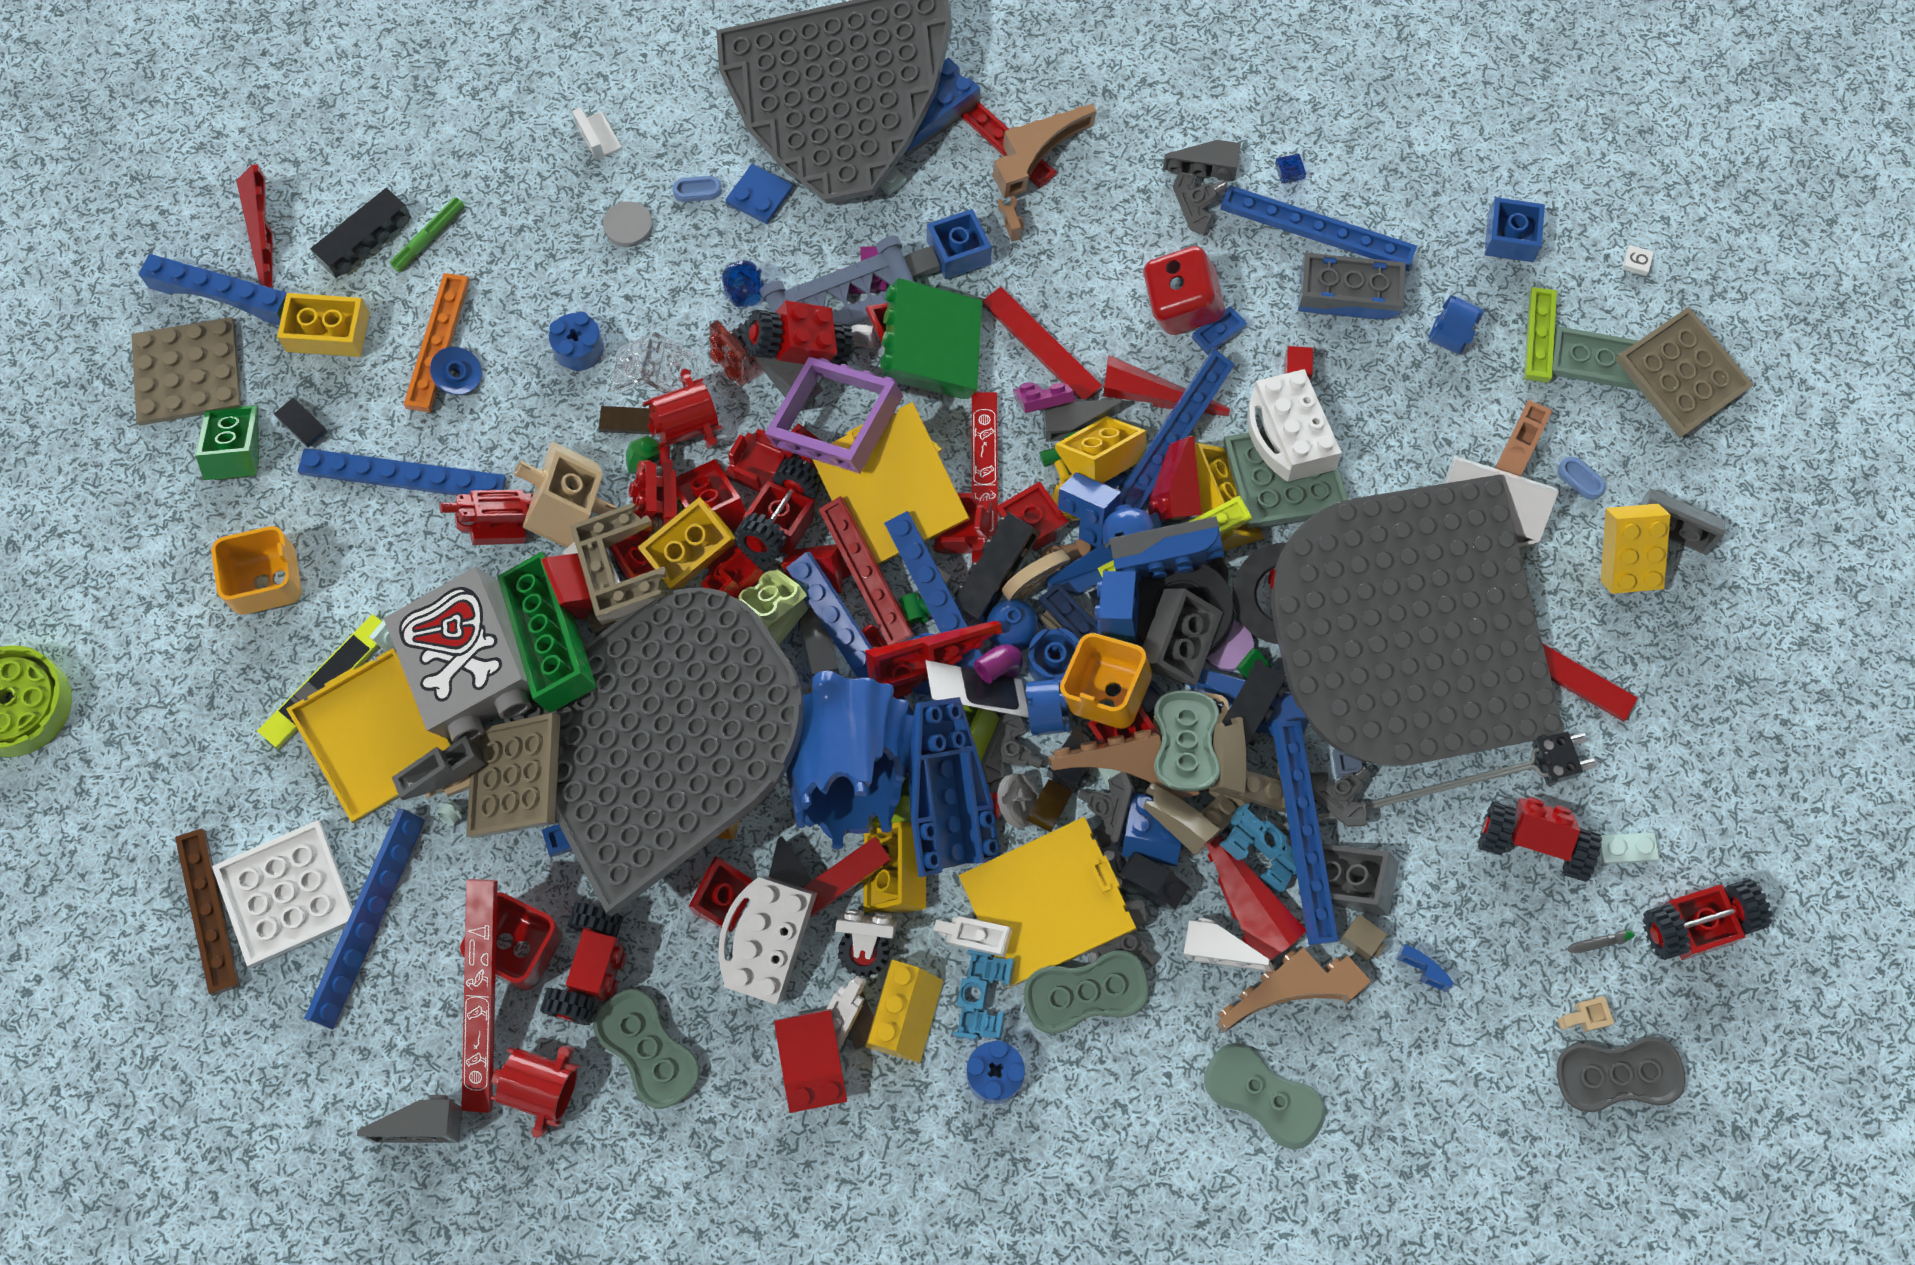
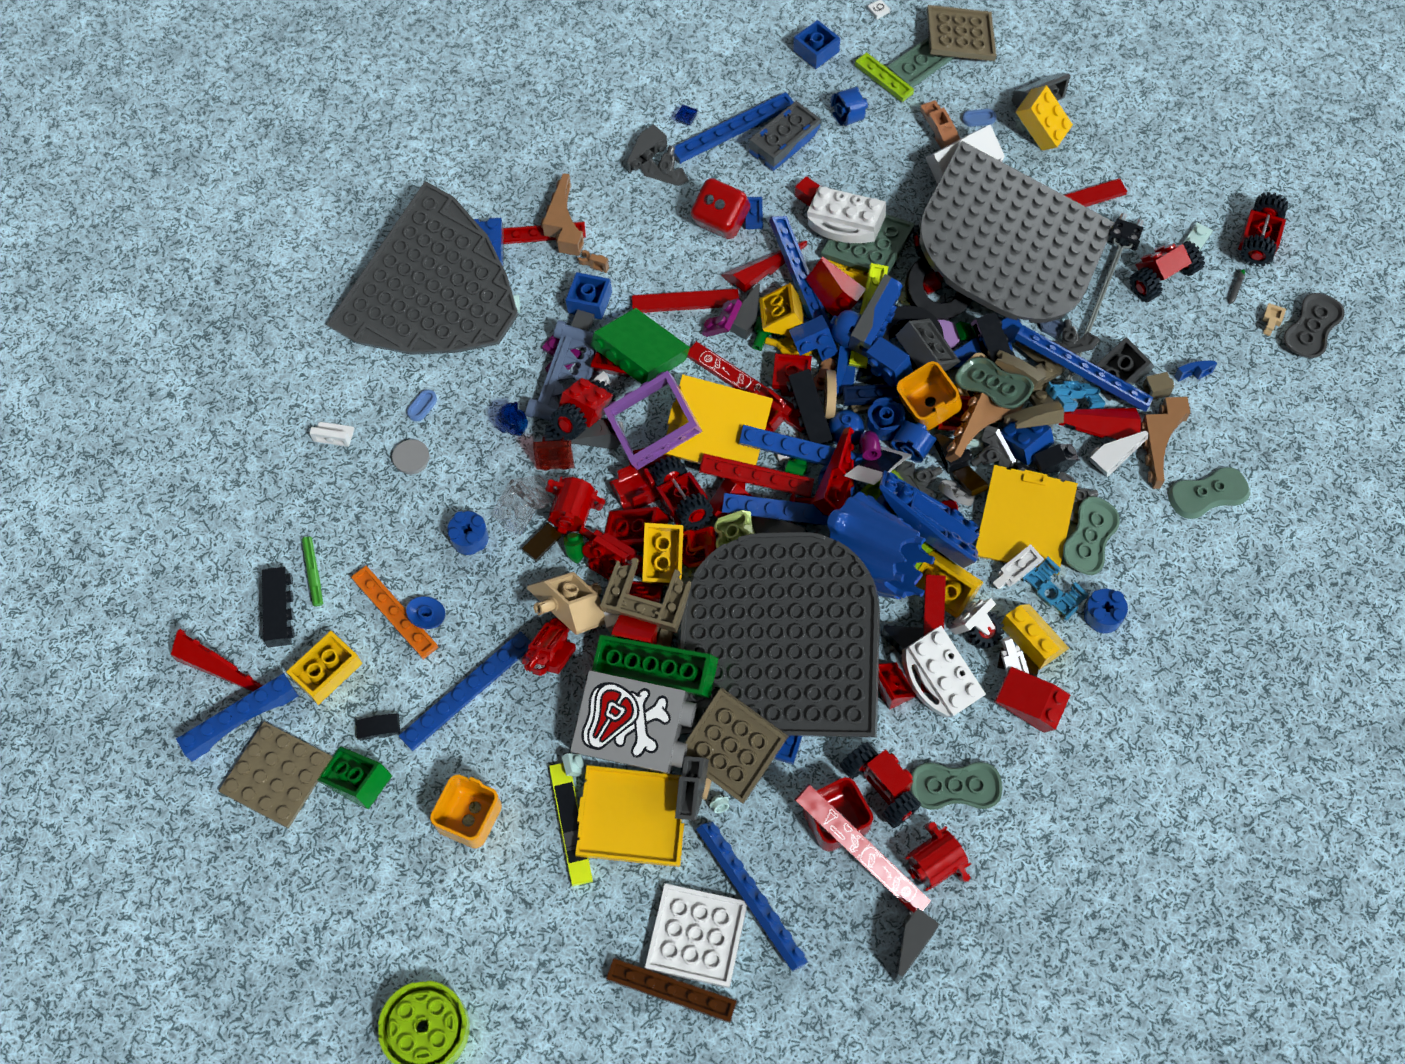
camera: 50 degrees left, 5 degrees down
(759, 194) = (456, 375): blue plate -> none

